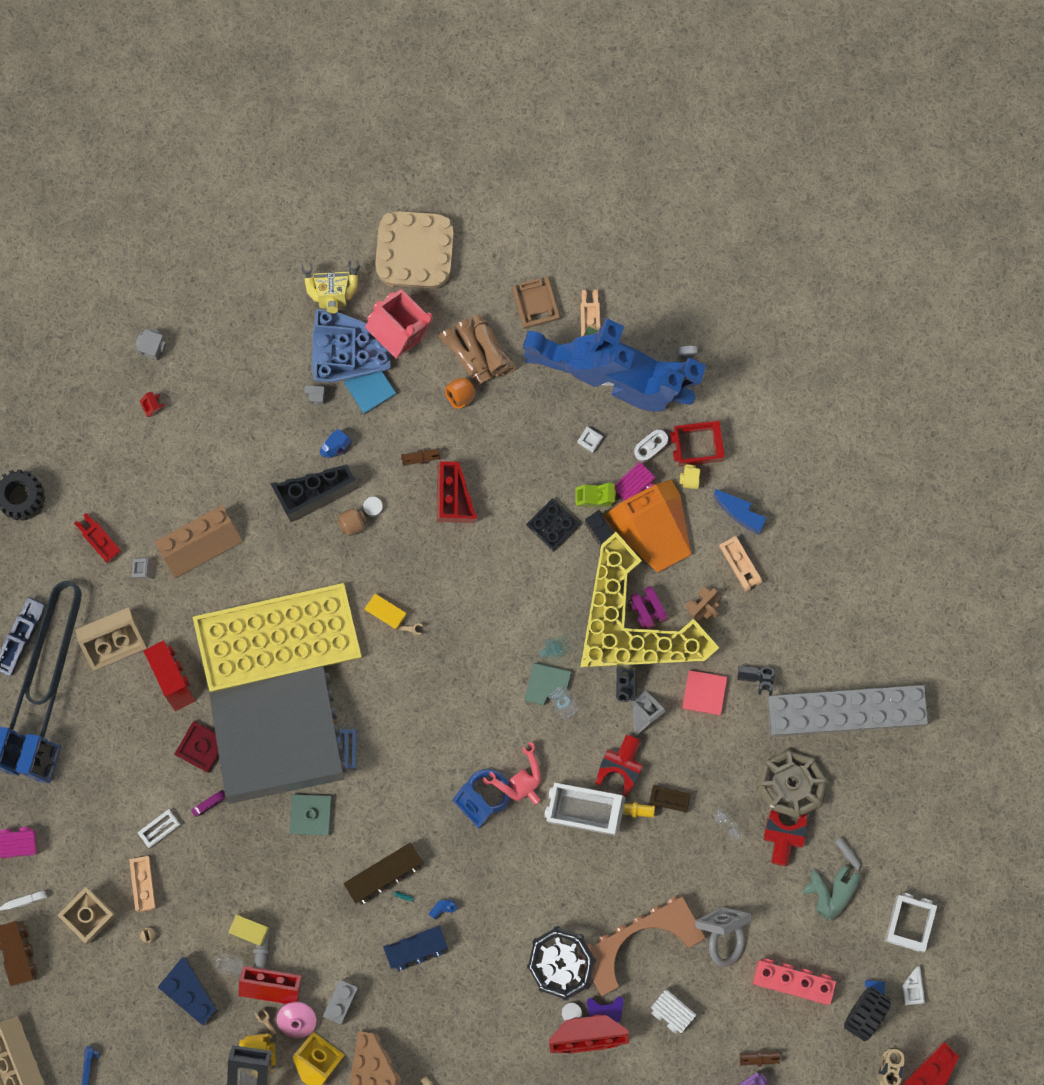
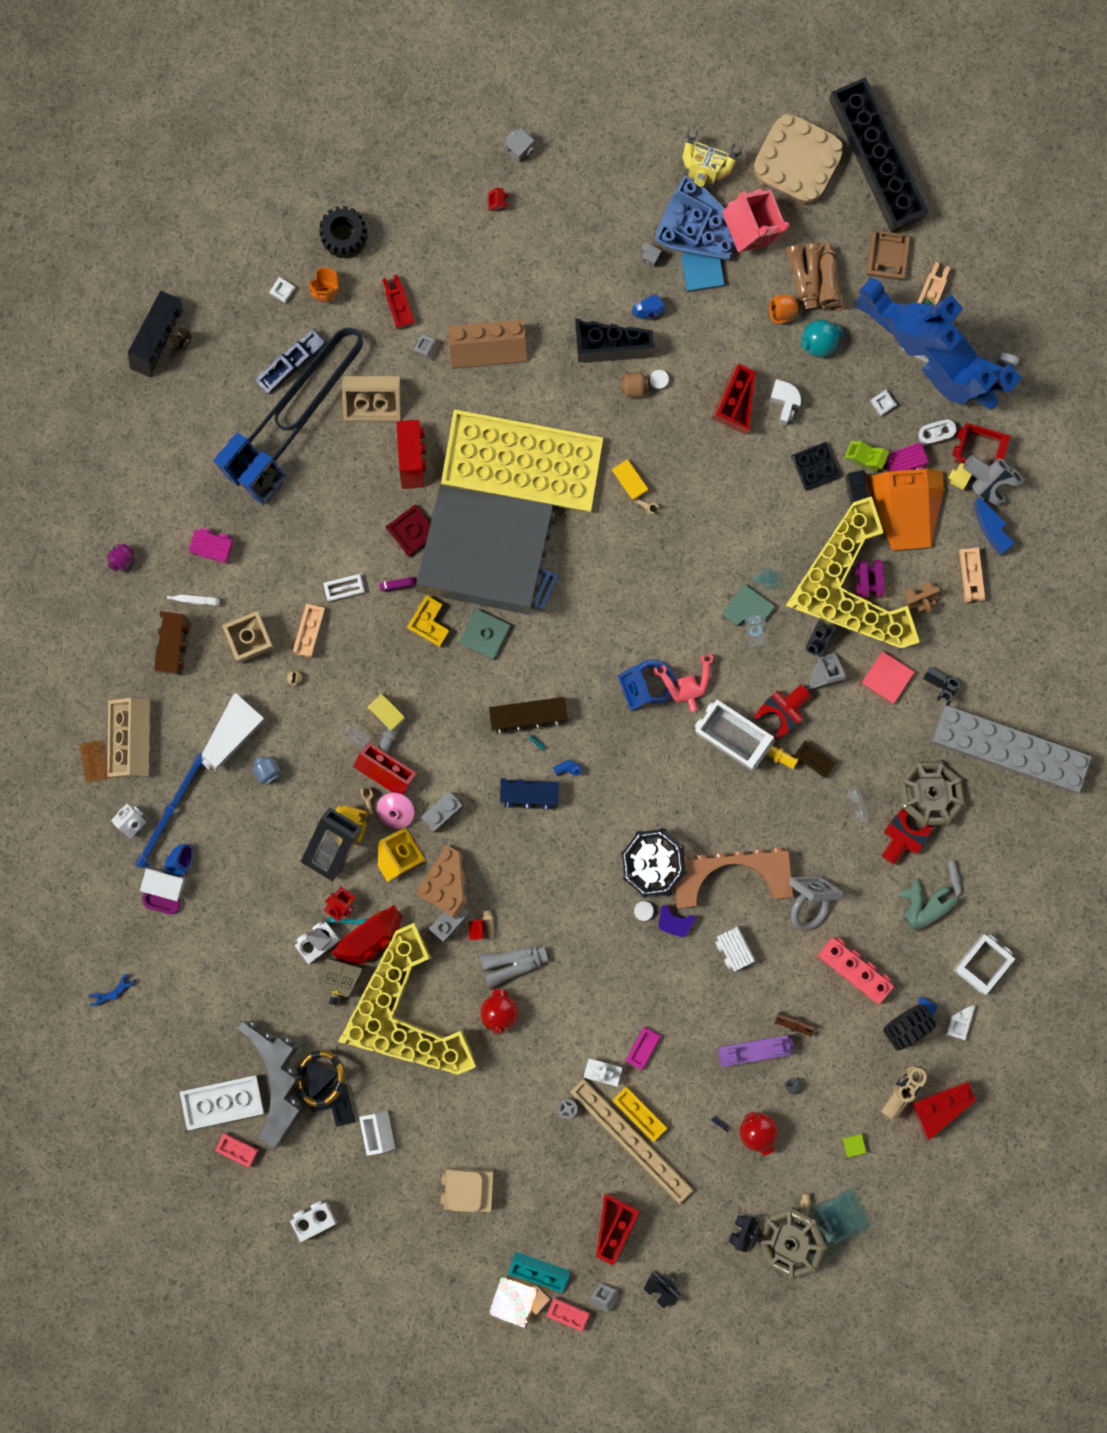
camera: 20 degrees right, 5 degrees up
(22, 552) = (325, 285): none -> orange helmet
(108, 1014) = (233, 729): none -> white slope
(157, 1035) = (266, 770): none -> sand blue head
(188, 992) = (309, 743): dark blue wedge -> none
(247, 828) = (424, 624): none -> yellow plate
(420, 457) = (722, 352): reddish brown pin -> none
(487, 215) = (878, 154): none -> black brick
(500, 471) = (786, 395): none -> white brick
(506, 404) = (821, 338): none -> teal brick
(588, 1035) = (650, 936): red wedge -> none
(719, 467) = (991, 477): none -> light grey connector

